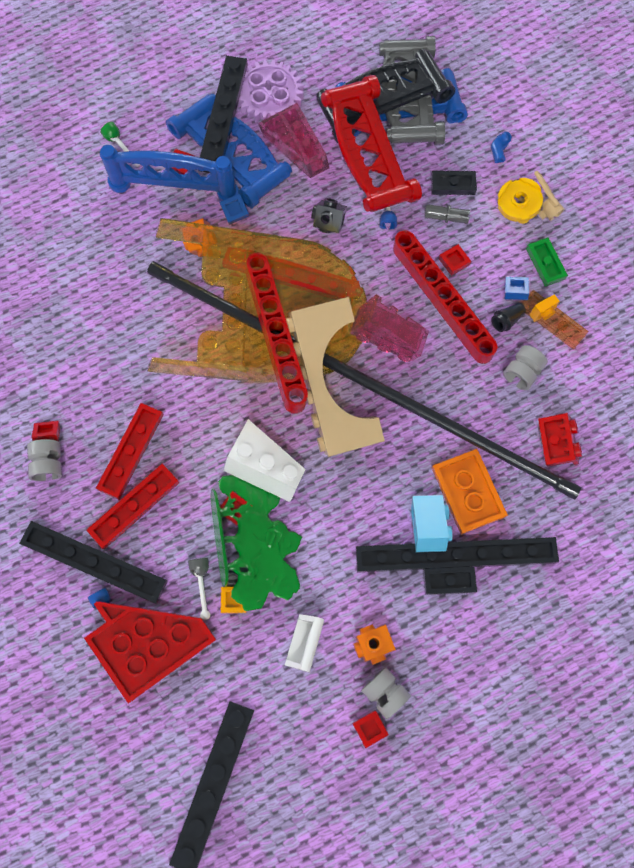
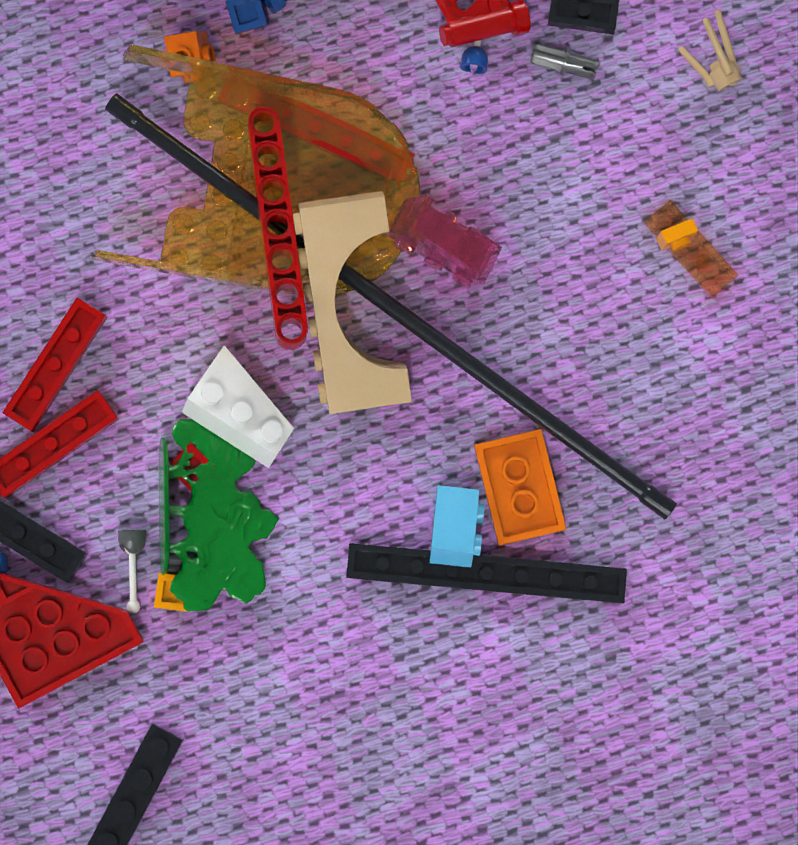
camera: 10 degrees right, 10 degrees up
(304, 642) = (261, 663): white tile -> none
(329, 215) = (385, 44): black brick -> none
(370, 729) = (331, 785): red plate -> none
(380, 636) = (362, 667): orange brick -> none
(386, 693) = (359, 743): light grey wheel -> none
(445, 307) = (535, 178): red beam -> none
(449, 580) = (470, 607): black plate -> none
(454, 259) = (562, 137): red plate -> none
(506, 318) = (622, 238): black cone -> none
(517, 288) = (645, 195): plate -> none
(520, 211) = (676, 35): yellow plate -> none
(526, 366) = (636, 316): light grey wheel -> none
(546, 262) = (698, 158): green plate -> none
(559, 440) = (662, 431): red bracket -> none

